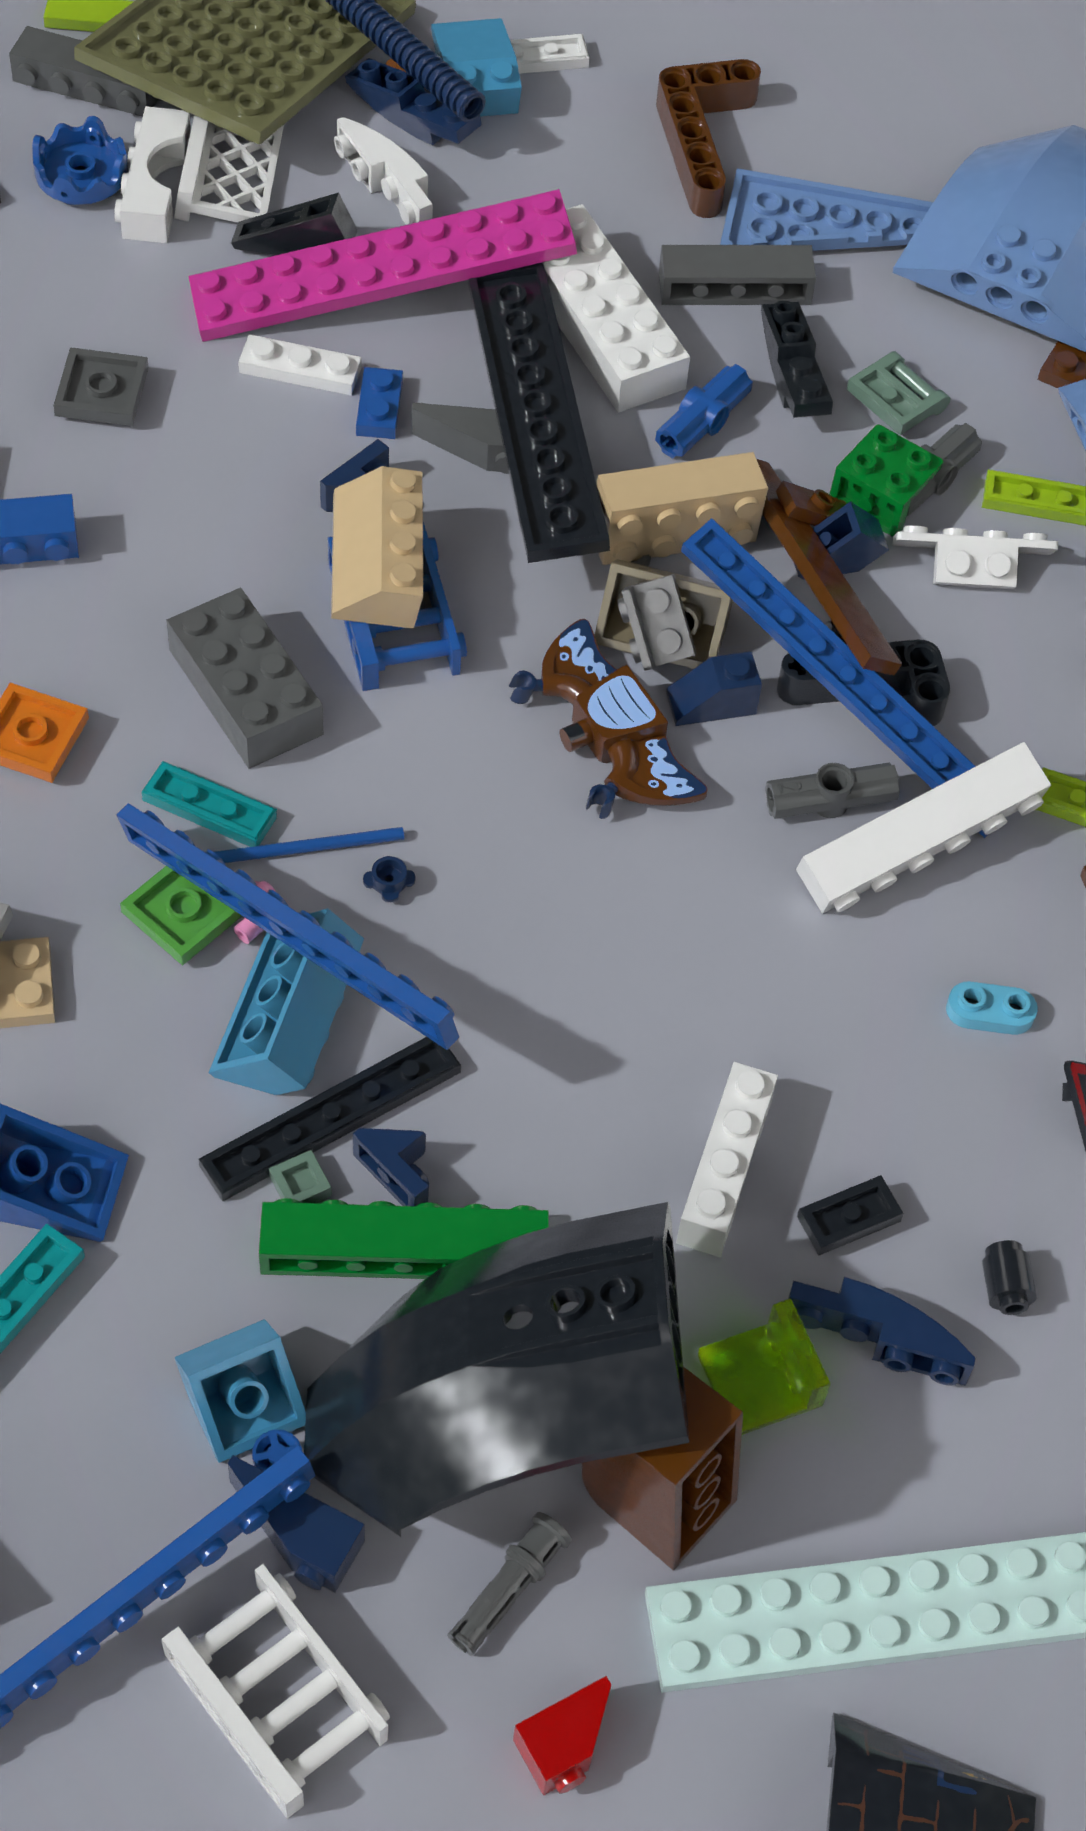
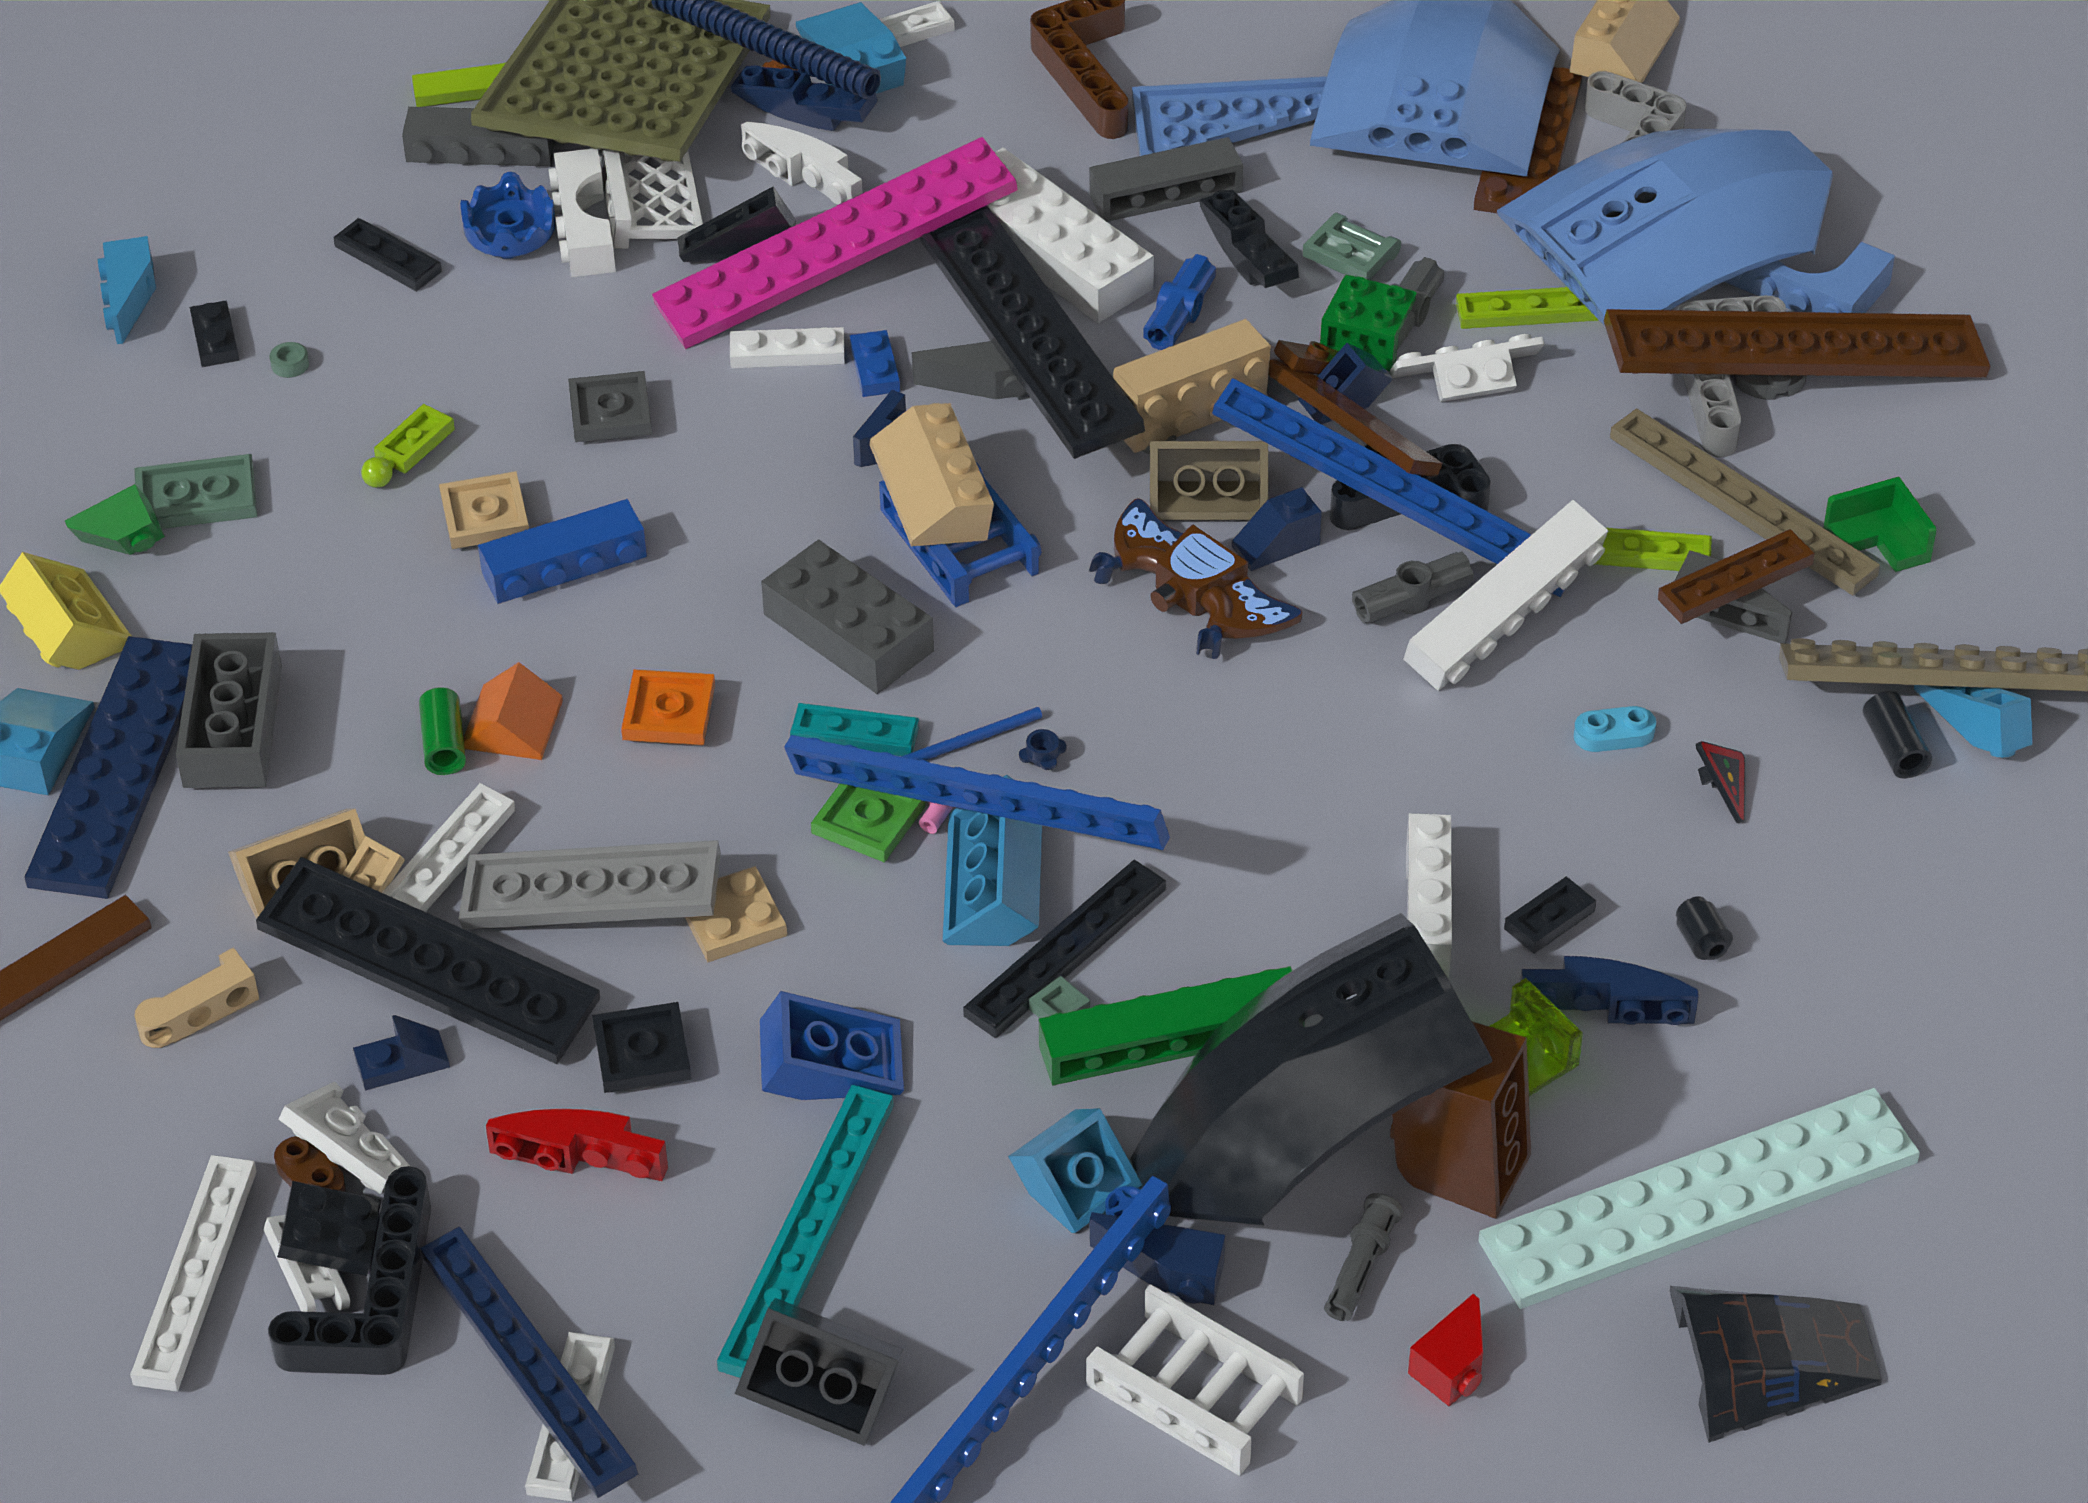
camera: 10 degrees left, 10 degrees down
(390, 1159) = (1135, 965): dark blue slope -> none
(657, 622) = (1208, 483): flat silver bracket -> none

